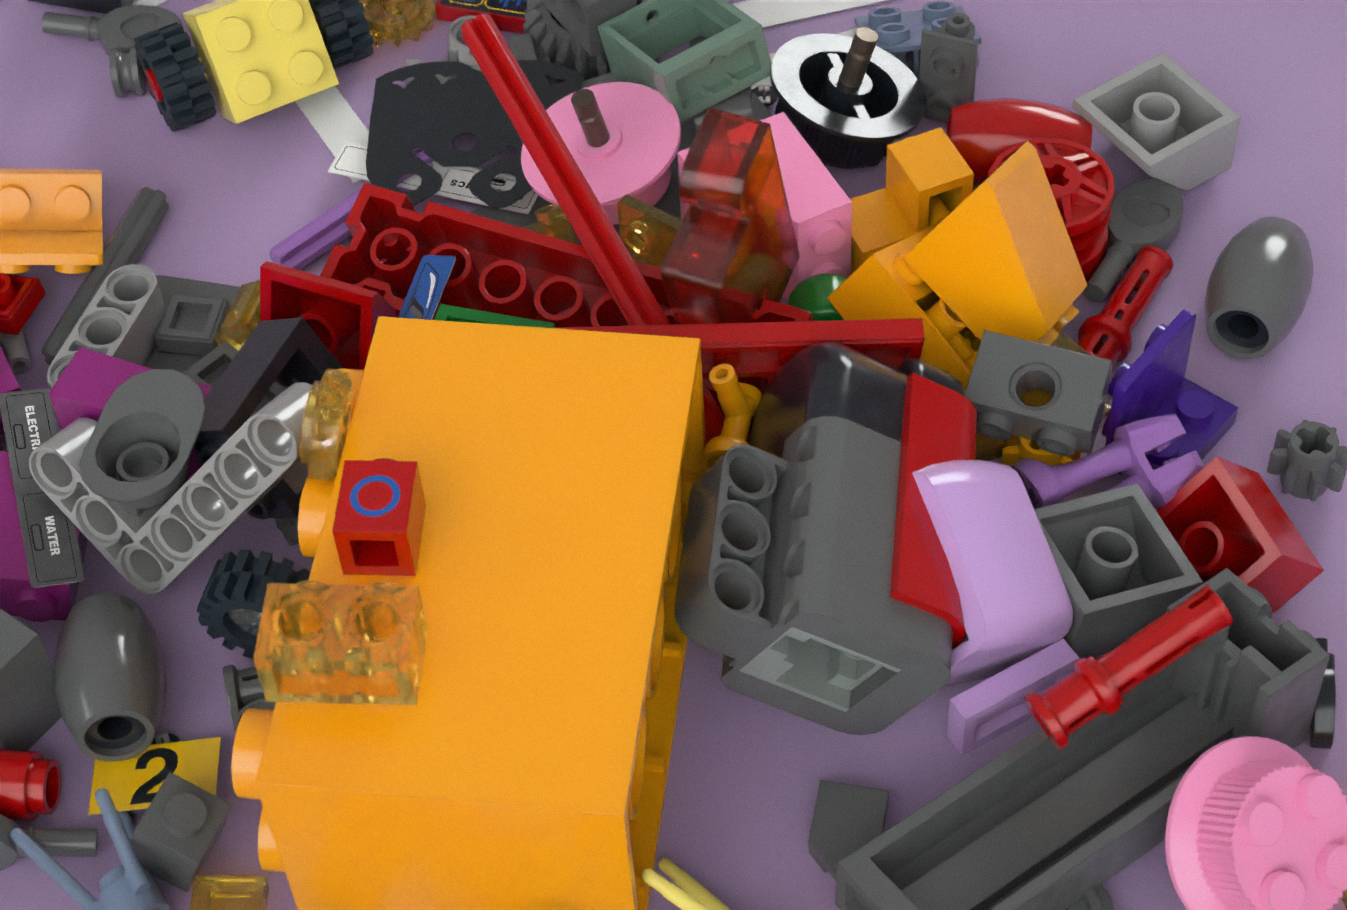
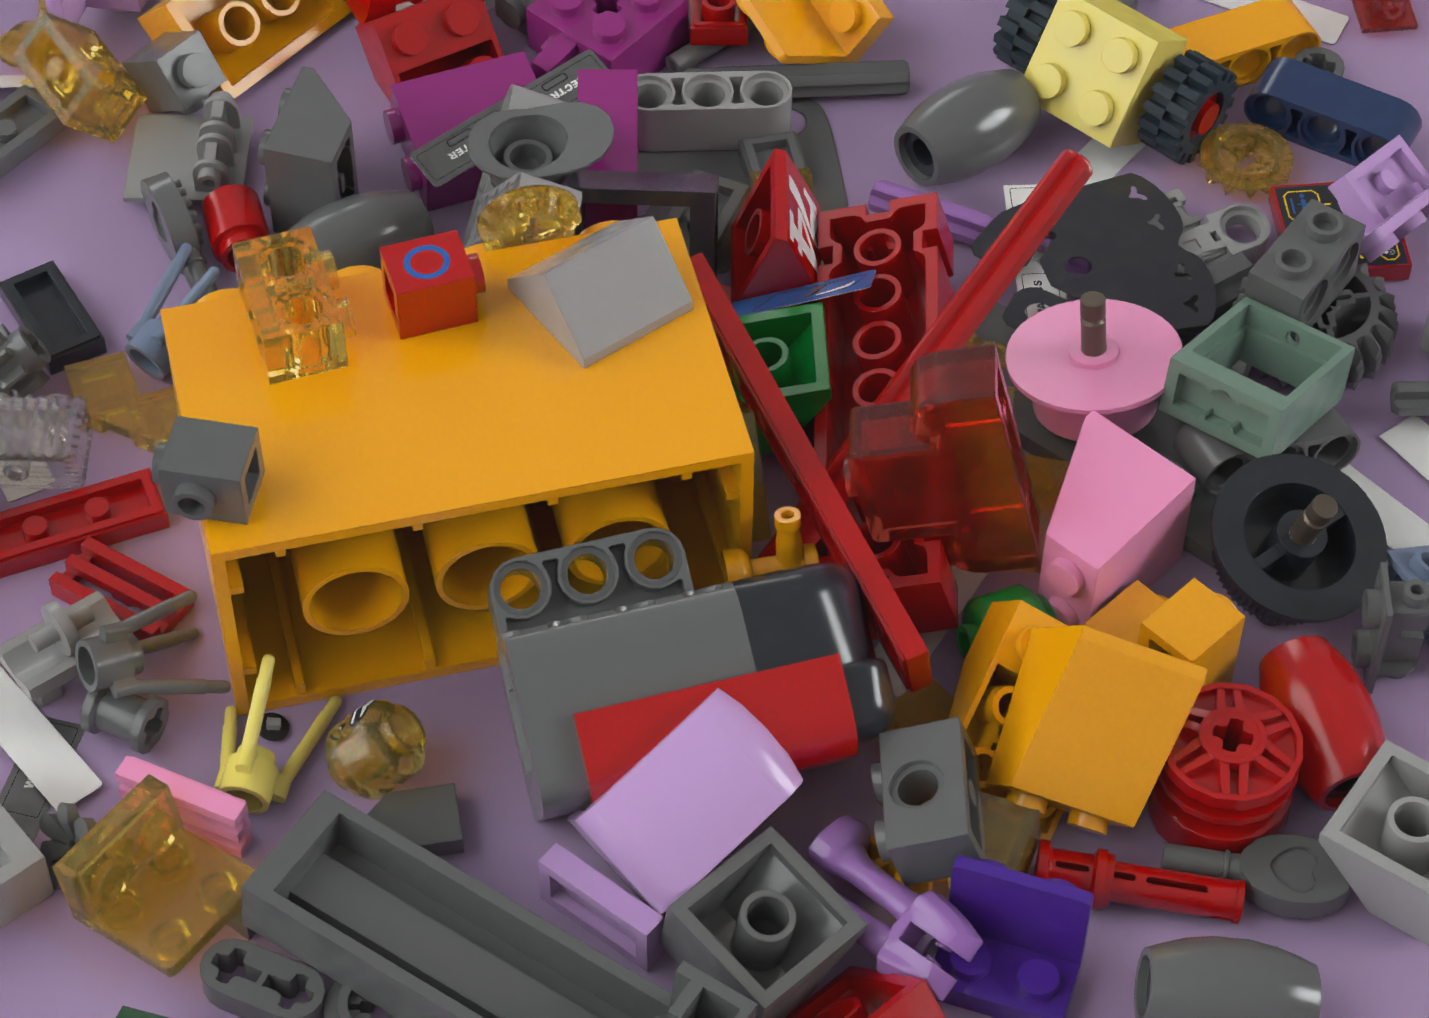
camera: 65 degrees right, 0 degrees up
(258, 166) = (967, 127): none -> dark grey piece
(446, 385) = (605, 289): none -> light grey slope
(537, 771) = (209, 470): none -> dark grey brick
(767, 827) = (376, 749): none -> clear yellow head
(1101, 683) = (575, 930): red pin -> none

